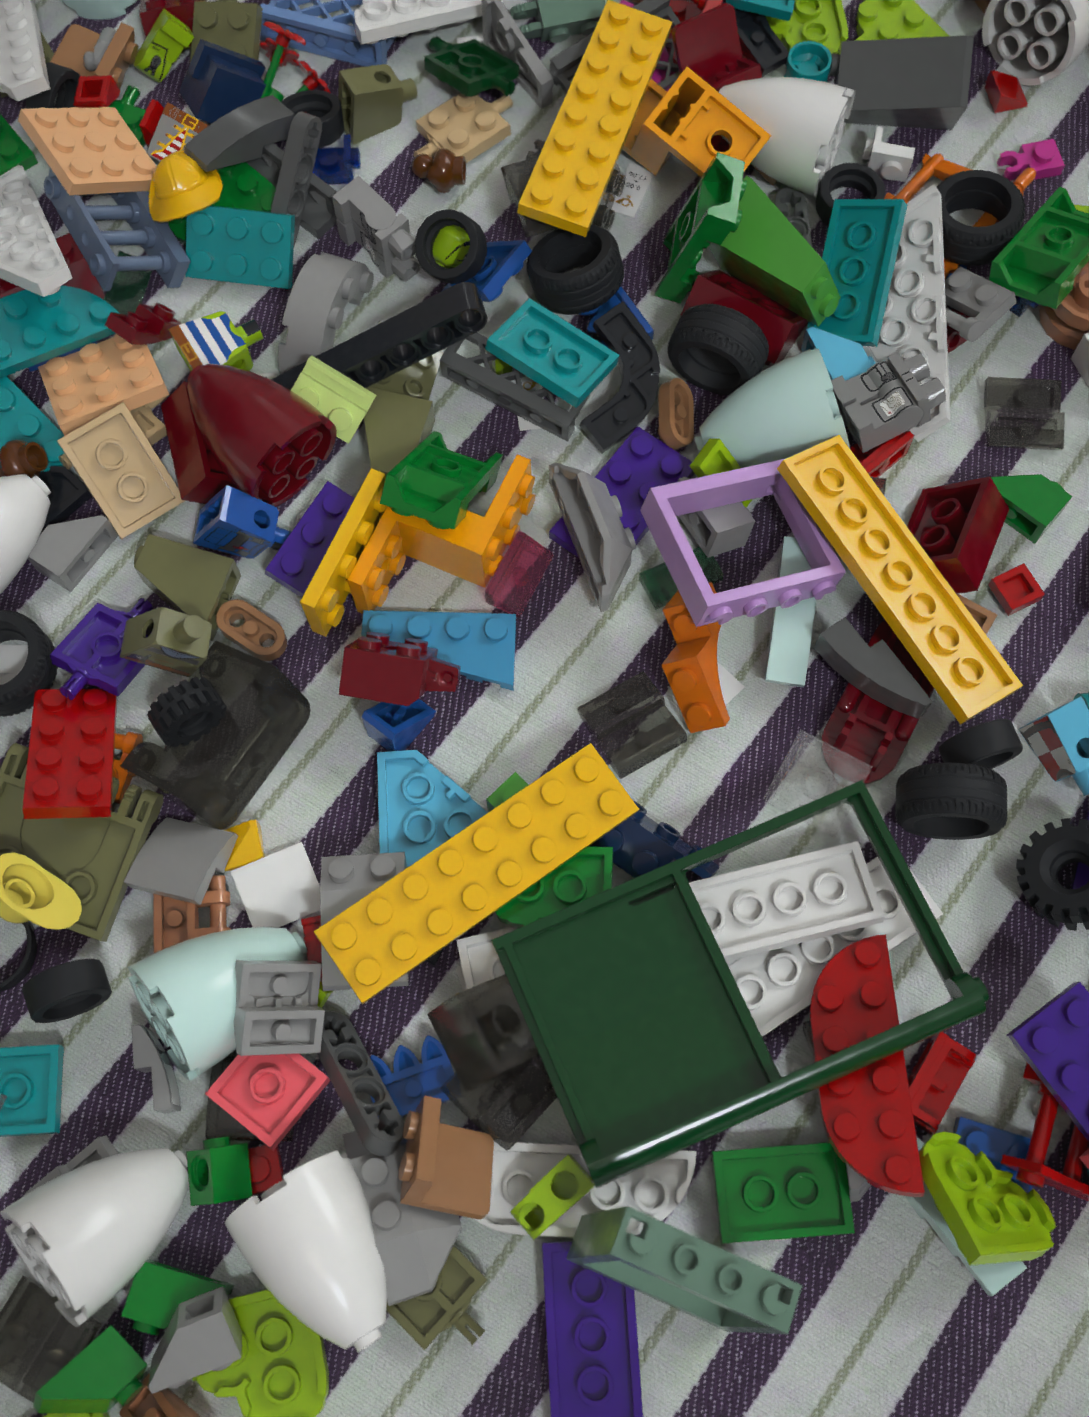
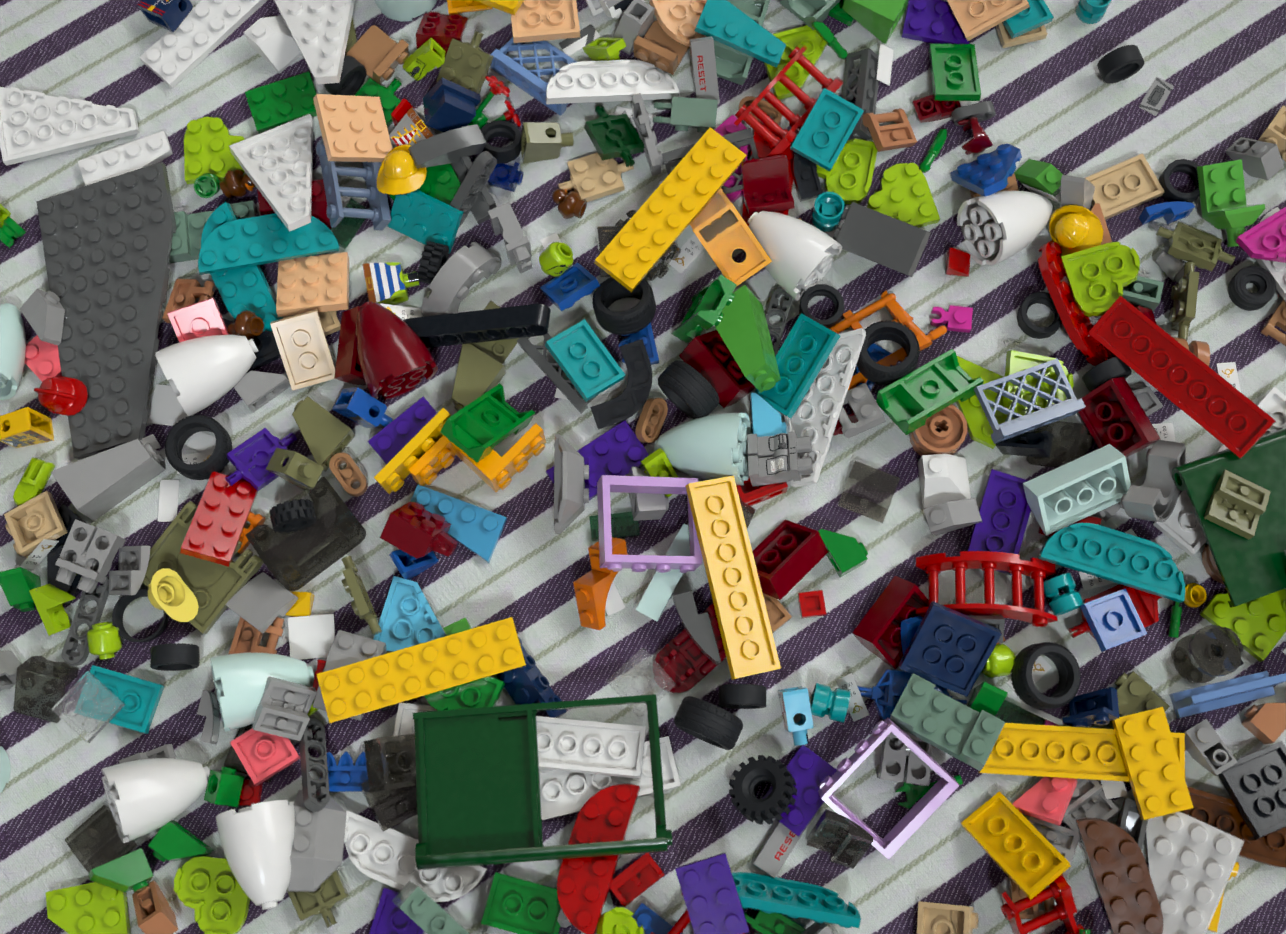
camera: 20 degrees right, 5 degrees up
(92, 59) = (378, 56): light grey arm -> none
(96, 91) = (370, 84): red slope -> none
(145, 326) = (351, 255): dark red slope -> none
(197, 1340) = (184, 872): light grey slope -> none
(272, 295) = (432, 260): none -> black tyre
(327, 788) = (361, 605): none -> olive plate
(334, 396) = (442, 346): yellowish green plate -> none
(425, 240) = (534, 262): black tyre -> none
(445, 1164) = (343, 827): medium nougat bracket -> none
(518, 574) = (517, 492): clear pink slope -> none
(552, 1196) = (395, 865): lime leg -> none
(632, 724) = (548, 608): clear smoke slope -> none
(888, 159) = (855, 289): white bracket -> none

